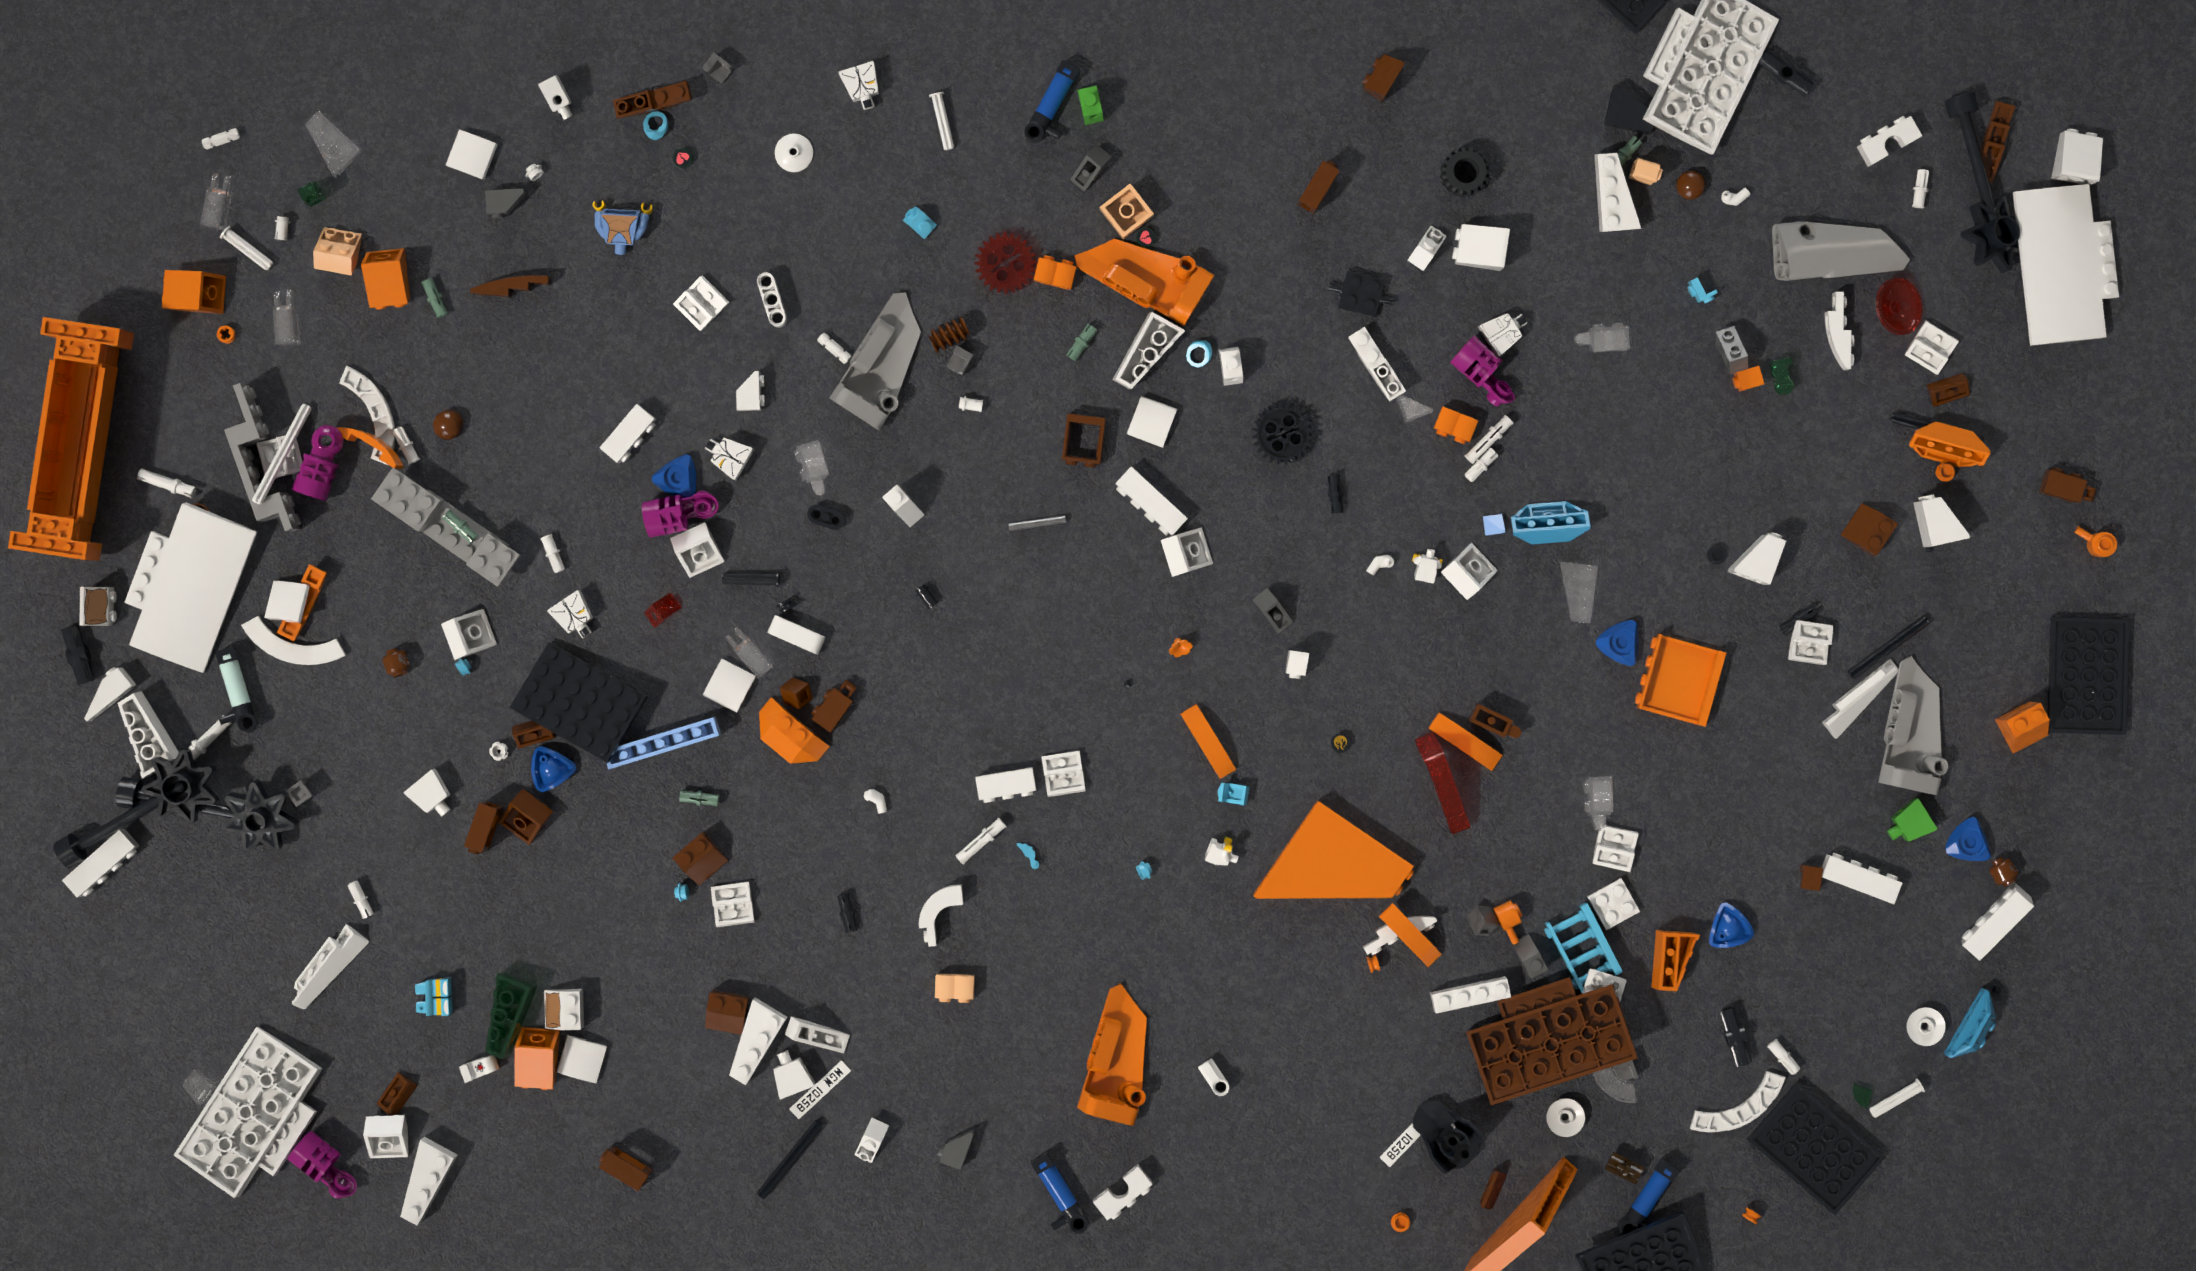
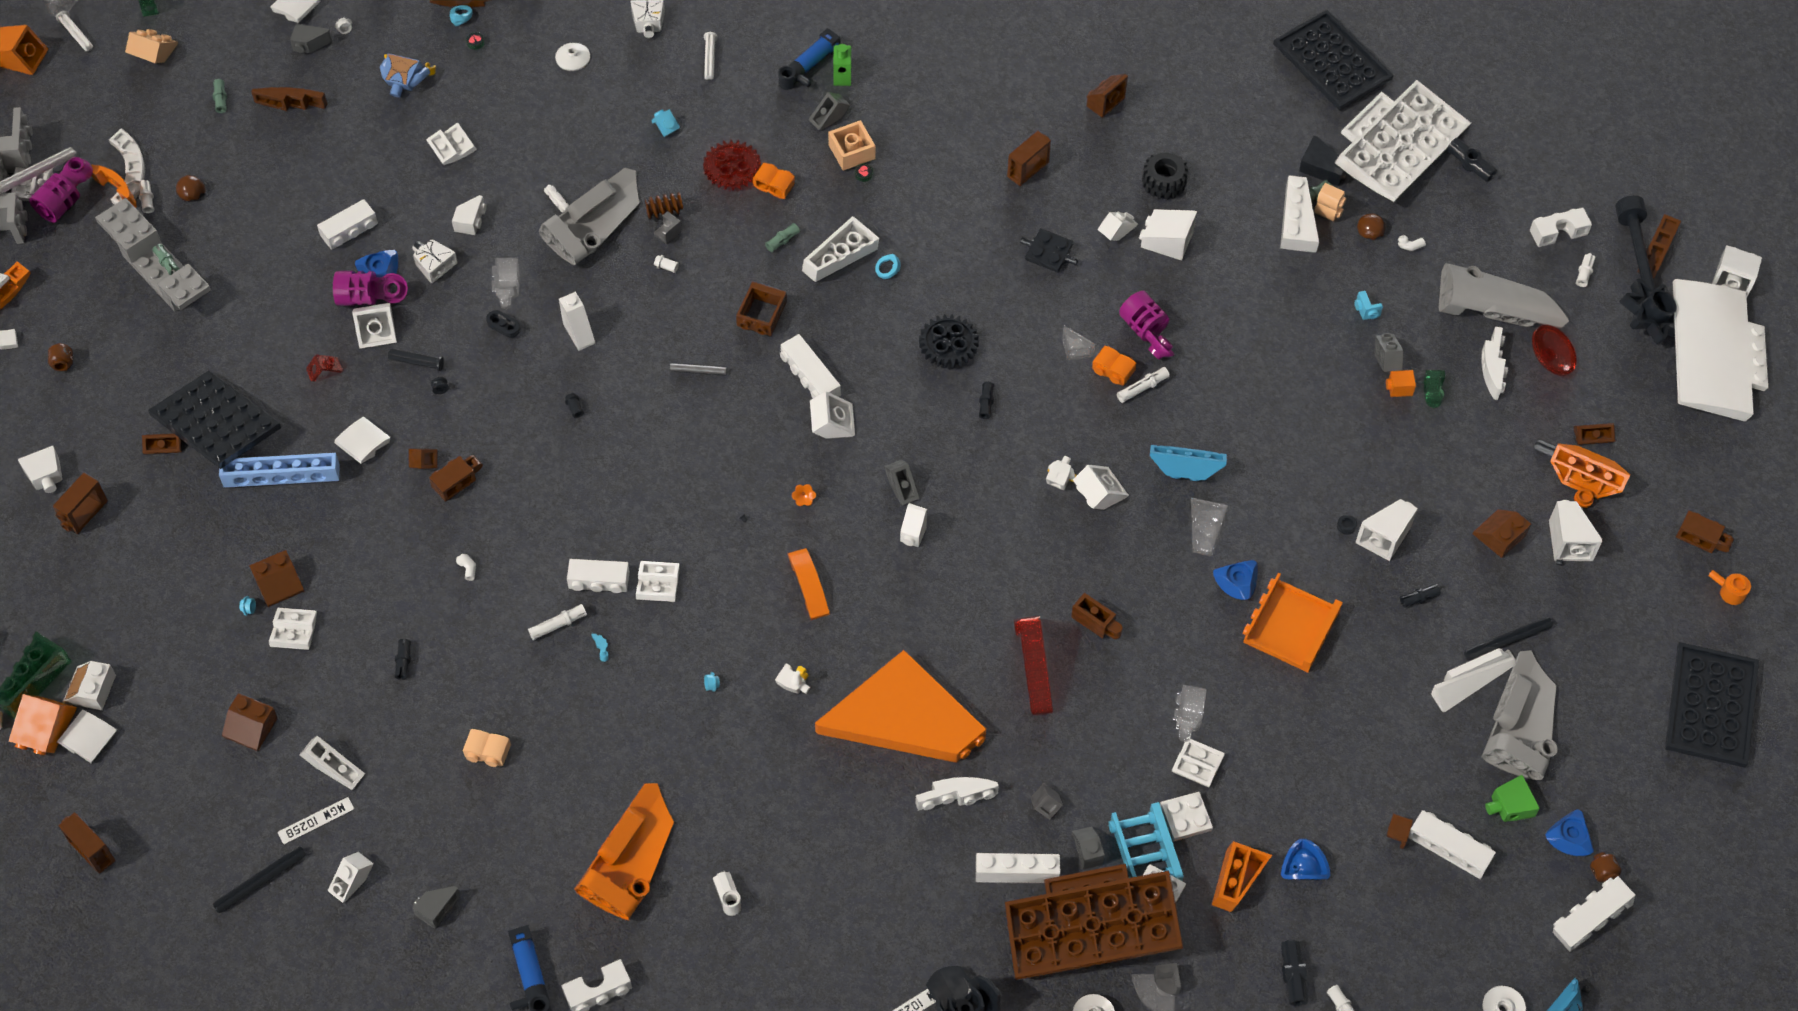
camera: 15 degrees right, 30 degrees down
(231, 332) = (28, 92): orange bush -> none
(281, 228) = (112, 21): white pin -> none
(285, 321) = (83, 85): clear hinge -> none
(386, 278) = (183, 70): orange slope -> none
(463, 666) = (120, 374): medium azure plate -> none
(469, 634) = (137, 348): white slope -> none
(498, 756) = (121, 446): white plate -> none
(525, 816) = (124, 507): reddish brown slope -> none
(550, 768) = (165, 472): blue hat -> none
(552, 553) = (241, 302): white axle -> none
(573, 614) = (239, 351): white torso -> none
(699, 798) = (296, 527): sand green pin -> none
(750, 654) = (392, 417): clear hinge -> none
(757, 1036) = (267, 754): white wedge -> none
(774, 309) = (514, 151): white beam -> none
(789, 735) = (405, 493): orange wedge -> none
(791, 1076) = (290, 797): white torso -> none
(796, 634) = (441, 410): white beam -> none
(942, 898) = (491, 668): white arch -> none
(1148, 277) = (875, 207): orange panel -> none
(1151, 421) = (829, 309): white slope -> none
(1231, 366) = (914, 272): white torso -> none
(1233, 793) = (820, 631): medium azure bracket -> none
(1340, 743) = (939, 610): black tile -> none
(1373, 963) = (922, 817): orange bush -> none
(1376, 364) = (1049, 302): white slope -> none
(1380, 562) = (1015, 464): white arm -> none
(1410, 935) = (969, 794): orange slope -> none
(1465, 741) = (1068, 635): orange slope -> none
(1481, 465) = (1131, 403): white axle -> none
(1493, 524) = (1133, 456): light blue slope -> none
(1502, 332) = (1174, 301): white torso -> none
(1508, 917) = (1073, 800): orange piece -> none
(1605, 338) = (1268, 326): clear hinge -> none
(1810, 642) = (1429, 615): white slope -> none
(1931, 347) = (1582, 394): white slope -> none
(2024, 725) = (1641, 730): orange slope -> none

